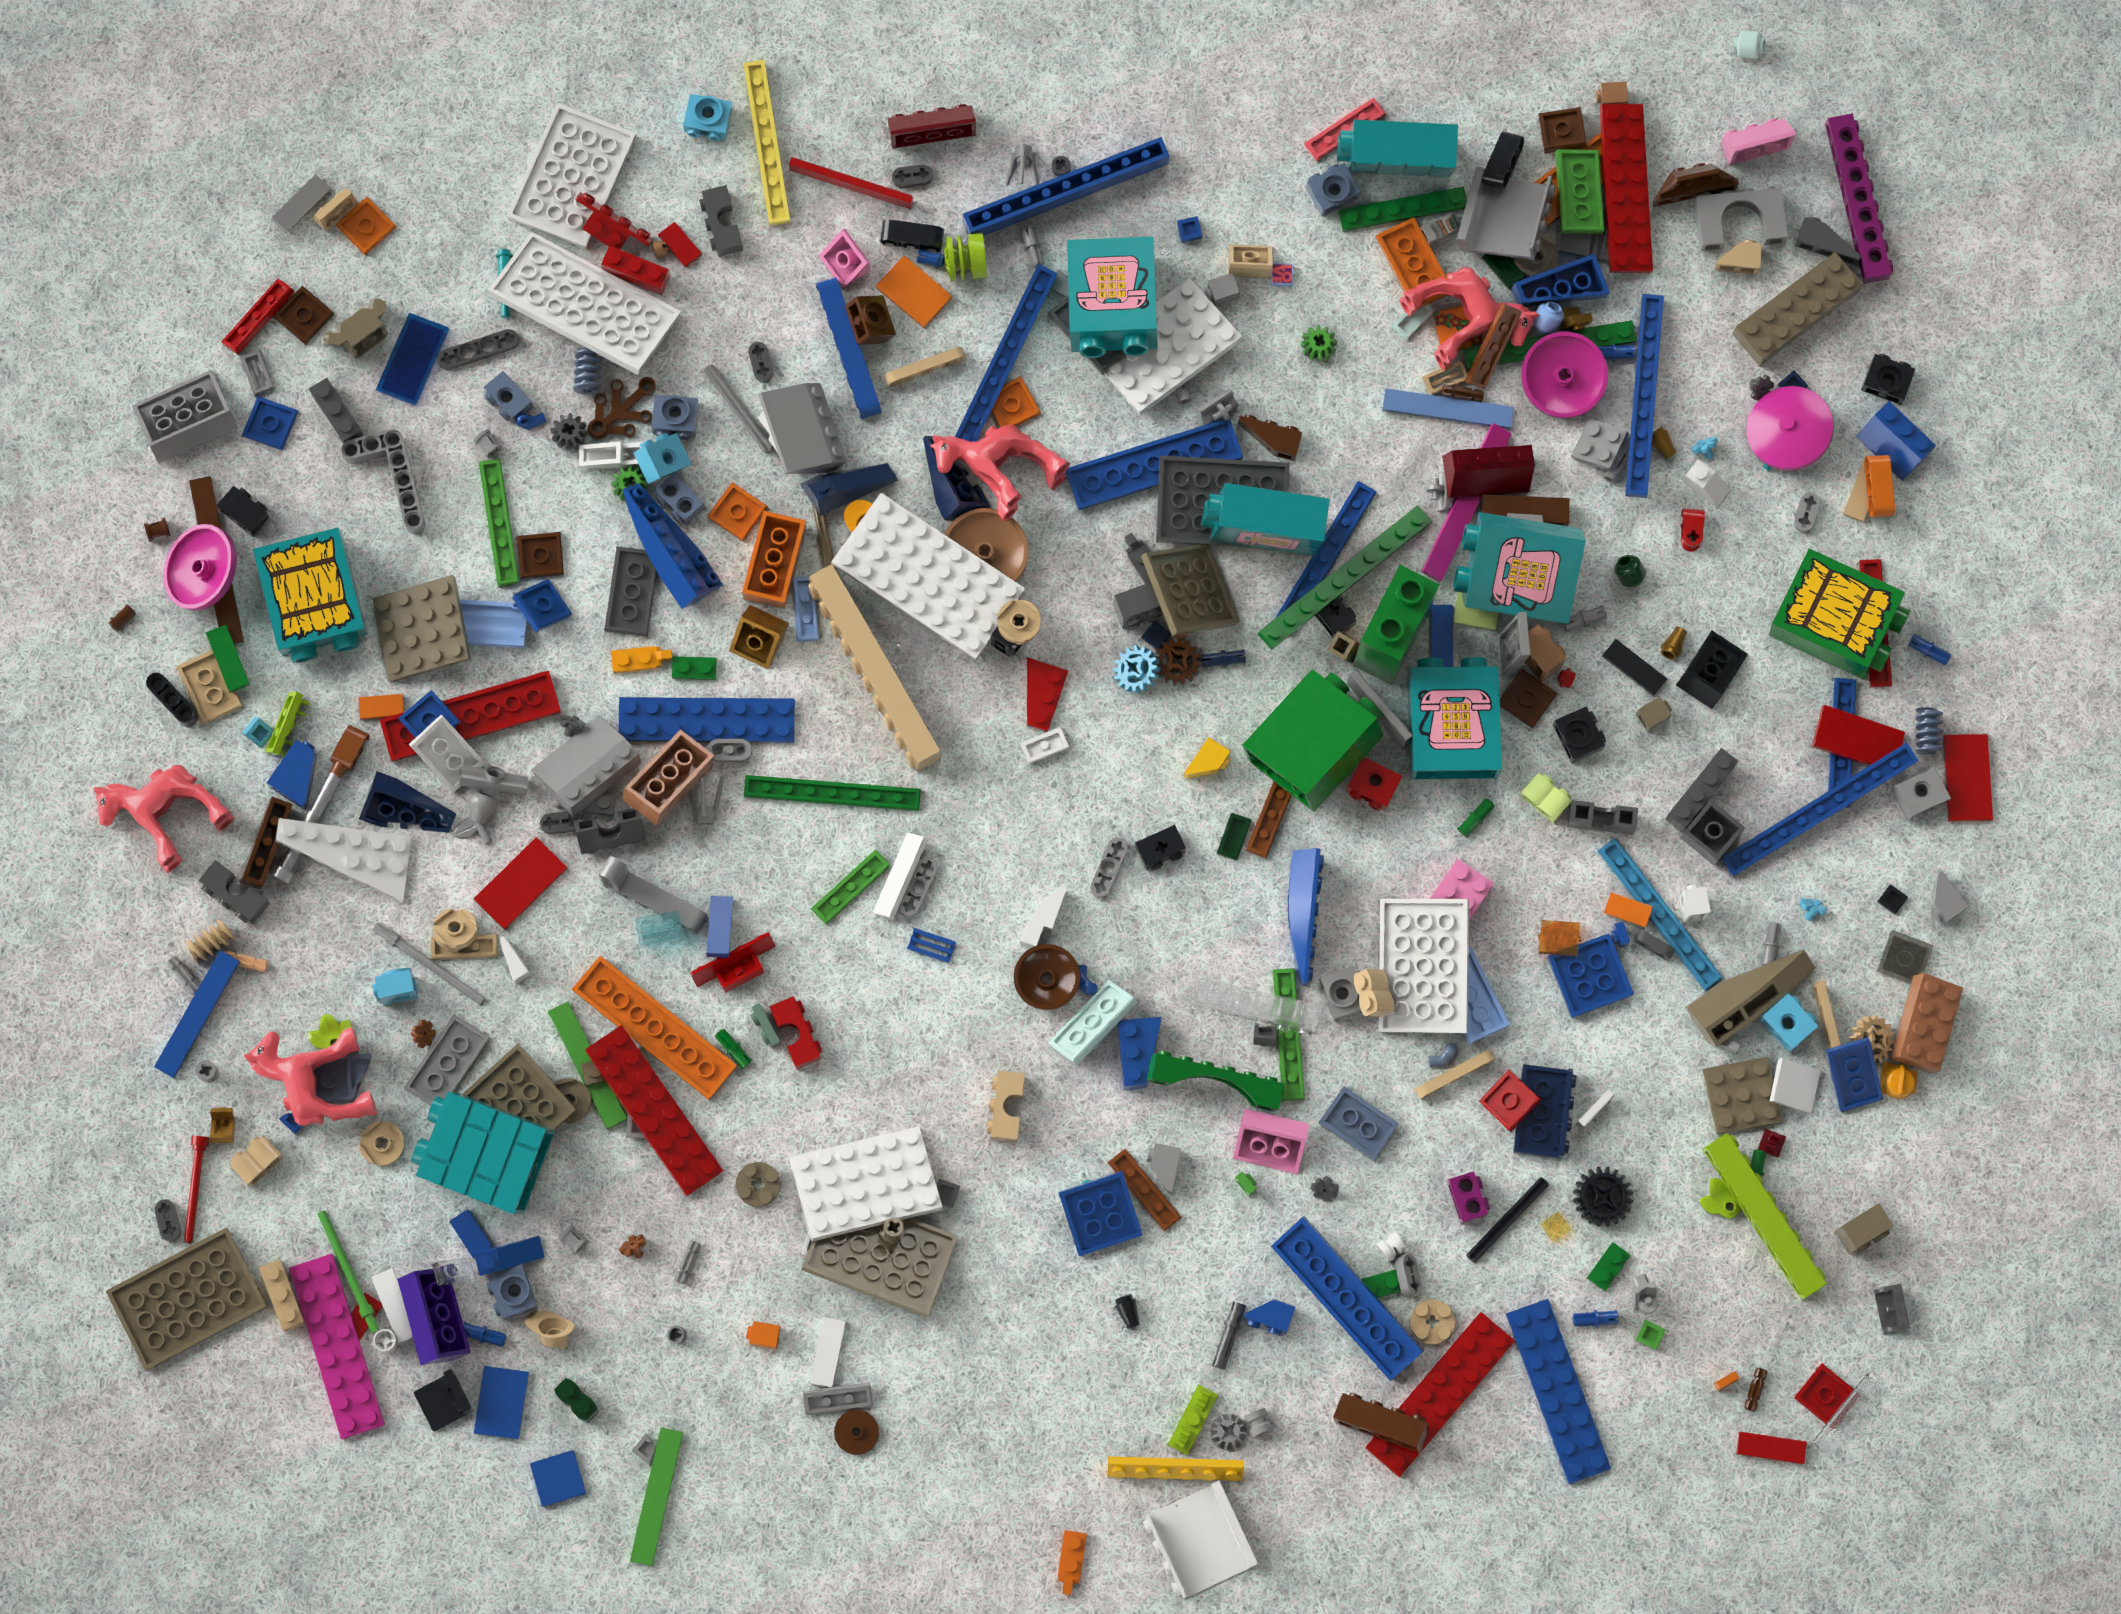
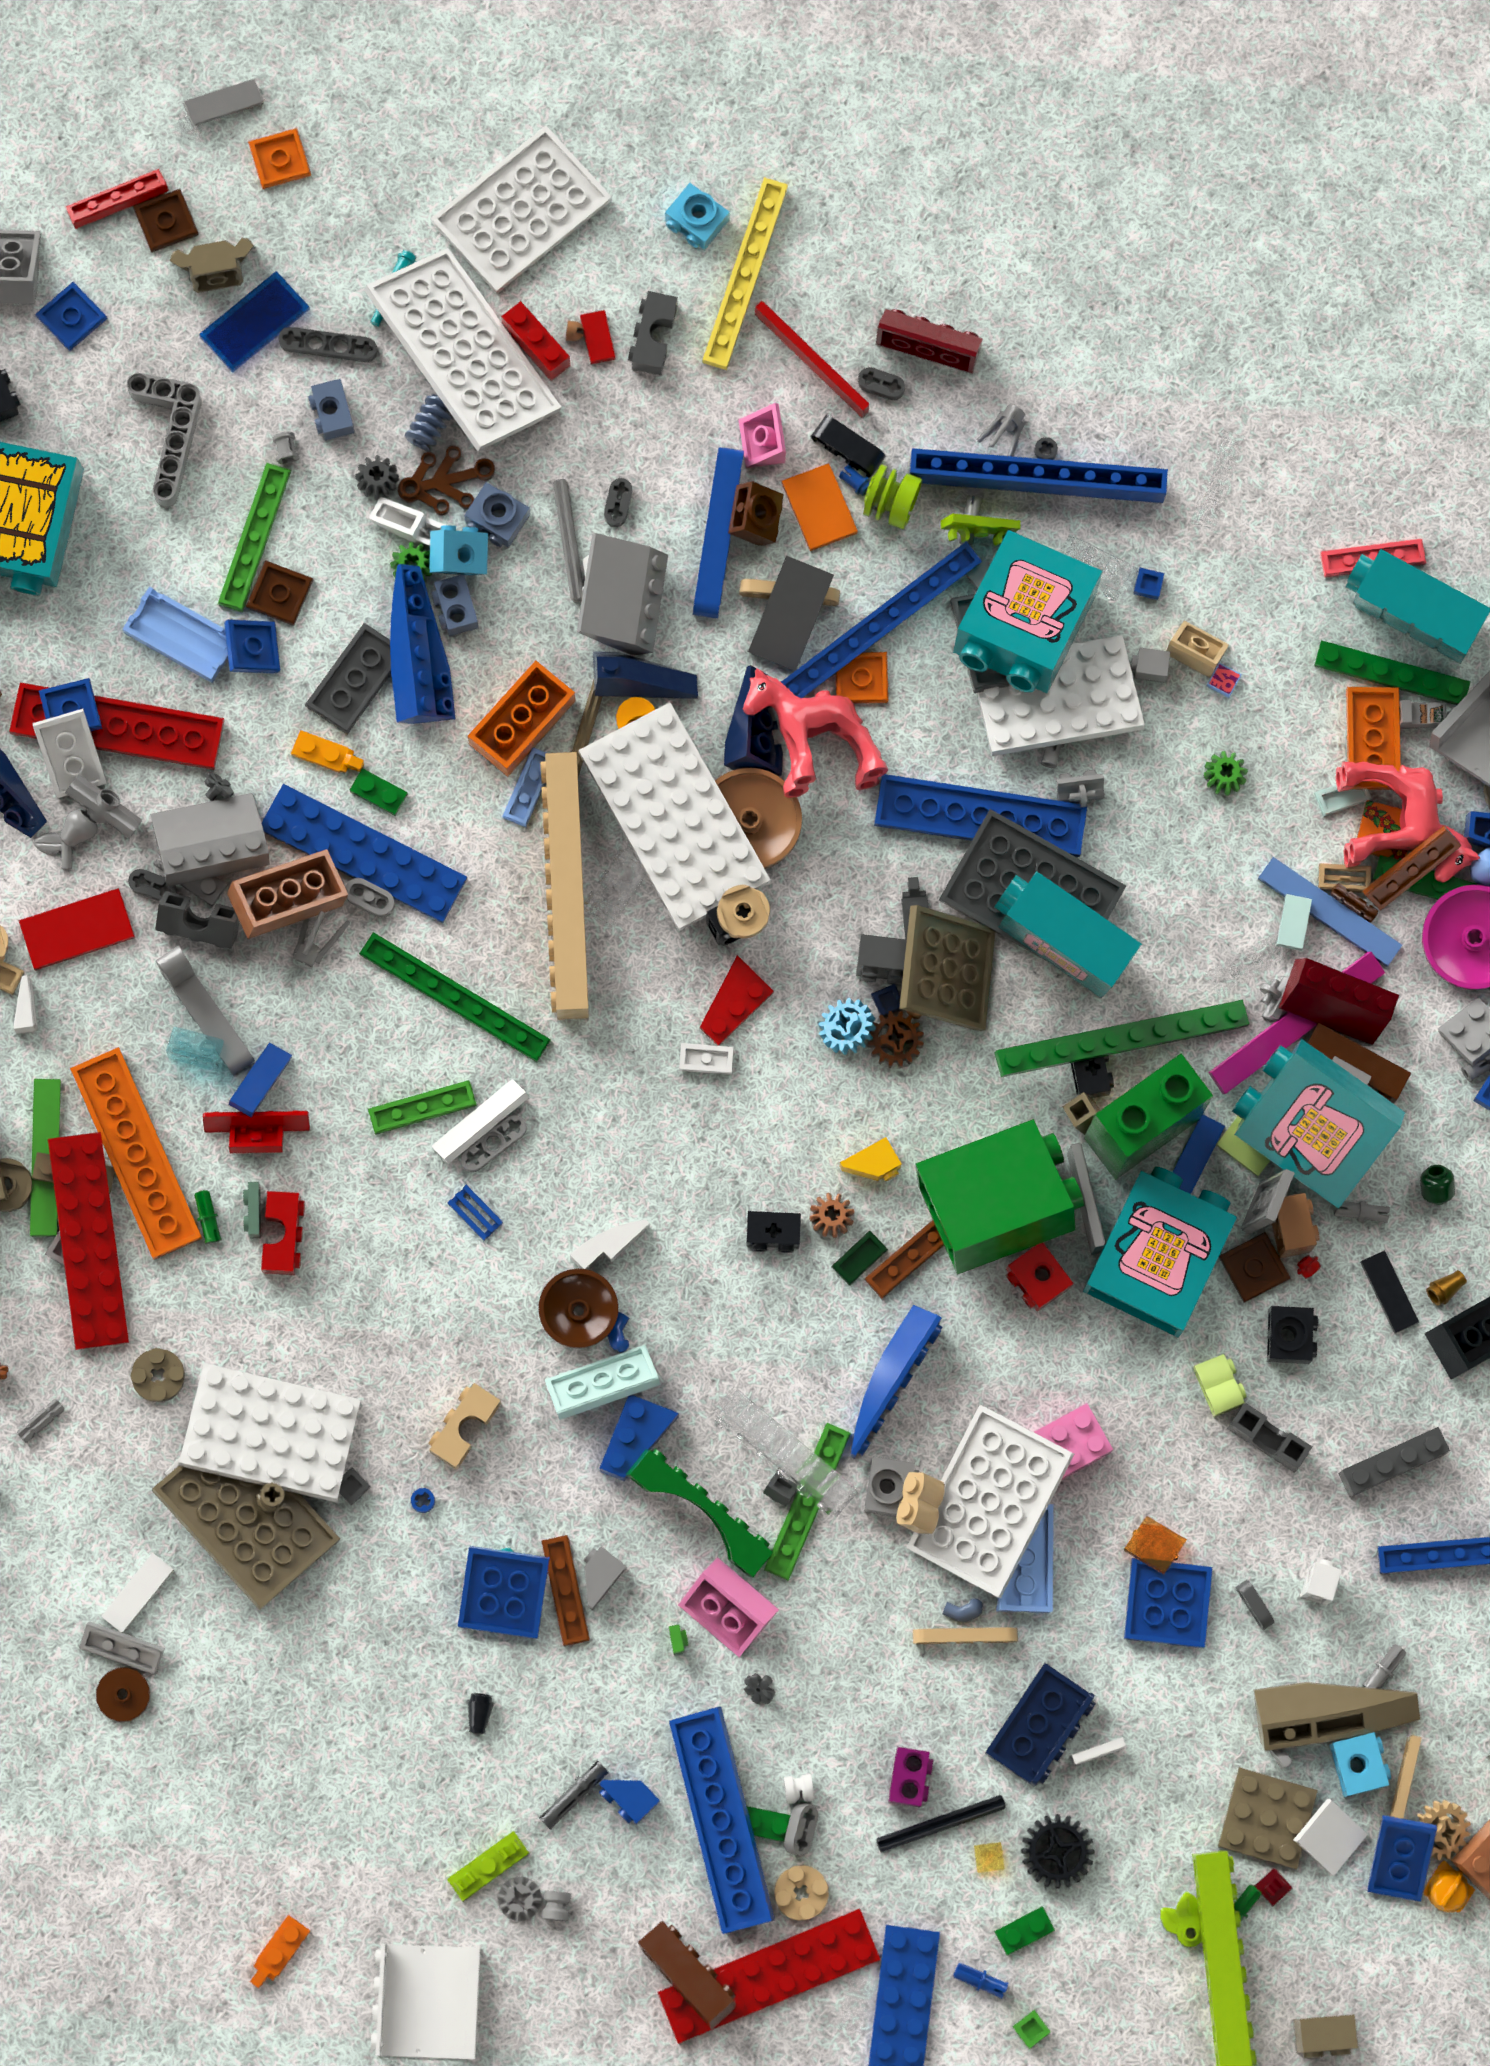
camera: 25 degrees right, 0 degrees up
(263, 389) = (84, 277): light grey tile -> none
(335, 209) = (255, 125): tan bracket -> none
(335, 411) = (144, 336): dark grey arch -> none
(380, 706) = (29, 669): orange tile -> none
(421, 628) = (113, 608): dark tan plate -> none
(528, 422) = (341, 446): blue arm -> none
(608, 226) = (531, 281): red bracket -> none
(737, 511) = (510, 648): orange tile -> none
(758, 636) = (463, 791): pearl gold slope -> none
(763, 1335) = (78, 1540): orange brick -> none
(935, 381) = (791, 613): none -> dark grey tile
(999, 1172) = (421, 1491): none -> blue bush
(1042, 248) = (979, 526): none -> lime plate
(1097, 880) = (687, 1231): light grey beam -> none
(1175, 1468) = (441, 1909): yellow plate -> none
(1188, 813) = (838, 1208): none -> nougat gear
(1223, 658) = (947, 1060): dark blue pin -> none
(1278, 440) = (1127, 855): reddish brown slope -> none
(1333, 543) = (1130, 994): blue tile -> none
(1337, 178) = (1334, 604): sand blue brick -> none
(1358, 1123) = (832, 1636): sand blue plate -> none
(1426, 429) = (1294, 922): none -> light aqua tile
(1476, 817) = (1132, 1368): green axle -> none
(1504, 269) = (1468, 791): dark green tile -> none
(1509, 1100) = (1009, 1694): red tile -> none
(1619, 935) = (1223, 1574): blue plate -> none
(1628, 909) = (1246, 1552): orange tile -> none
(1644, 1294) = (1046, 1982): light grey hips -> none
(1654, 713) = (1385, 1353): dark tan brick -> none
(1661, 914) = (1279, 1574): dark azure tile -> none
(1712, 832) = (1381, 1514): dark grey brick -> none
(1812, 908) = (1450, 1652): medium azure plant -> none

